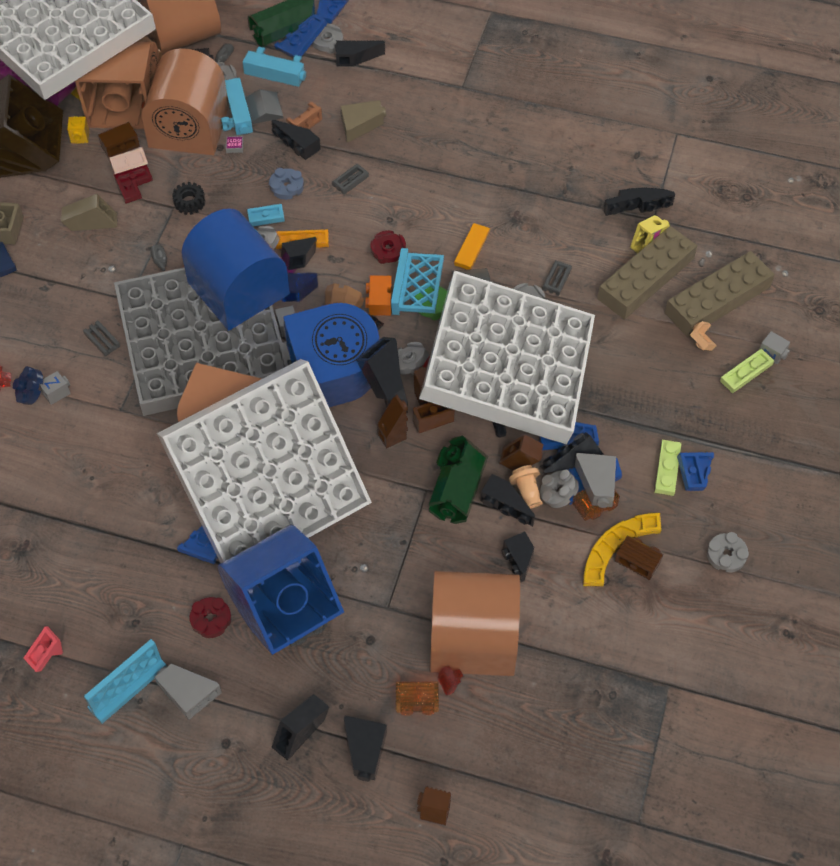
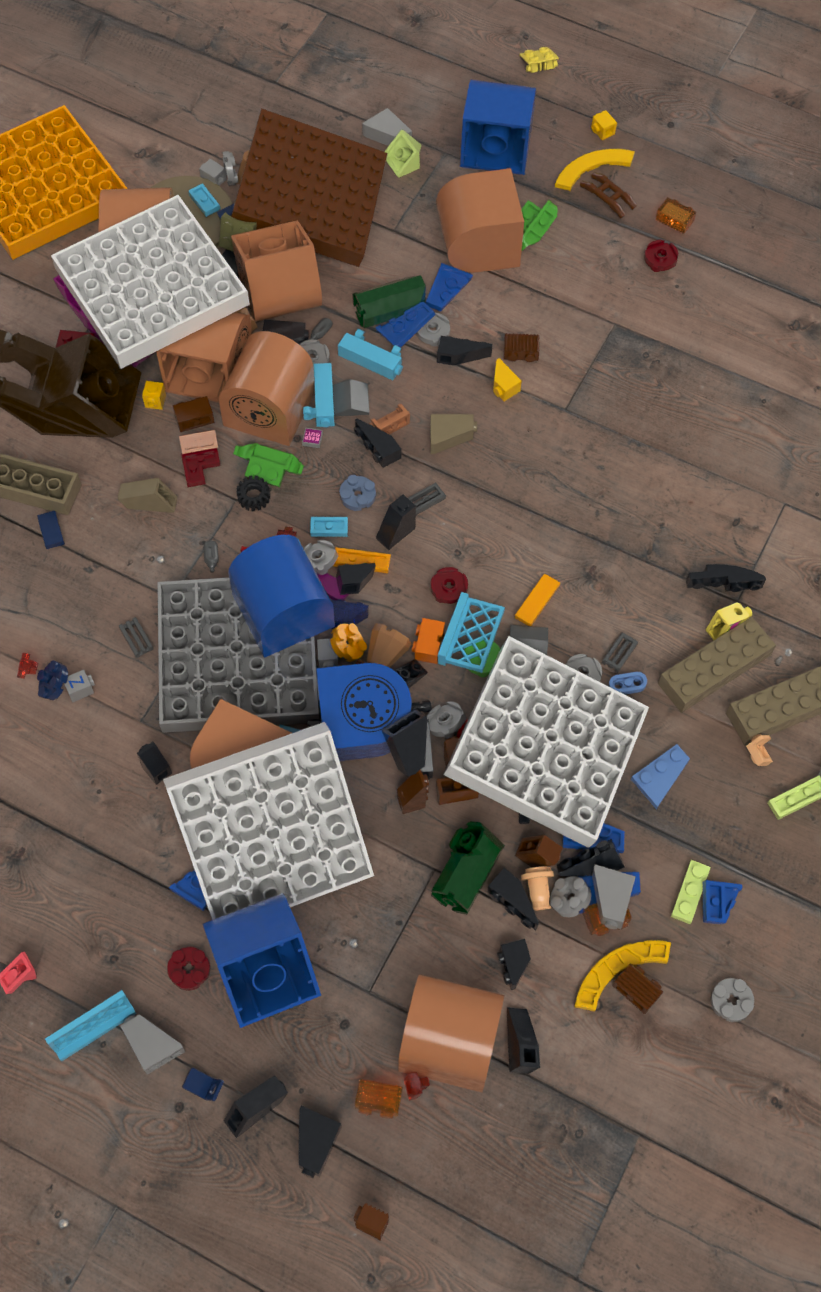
camera: 10 degrees right, 5 degrees up
(140, 440) = (154, 762): none -> black slope
(198, 170) = (268, 463): none -> bright green plate
(244, 717) = (202, 1085): none -> dark blue bracket
(301, 302) = (349, 633): none -> light orange plate
(329, 199) = (397, 523): none -> black slope
(403, 70) = (505, 381): none -> yellow slope
(411, 41) = (521, 347): none -> reddish brown brick
(542, 623) = (522, 1042): none -> black slope
(569, 299) = (626, 682): none -> medium blue plate
(617, 374) = (661, 774): none -> medium blue wing

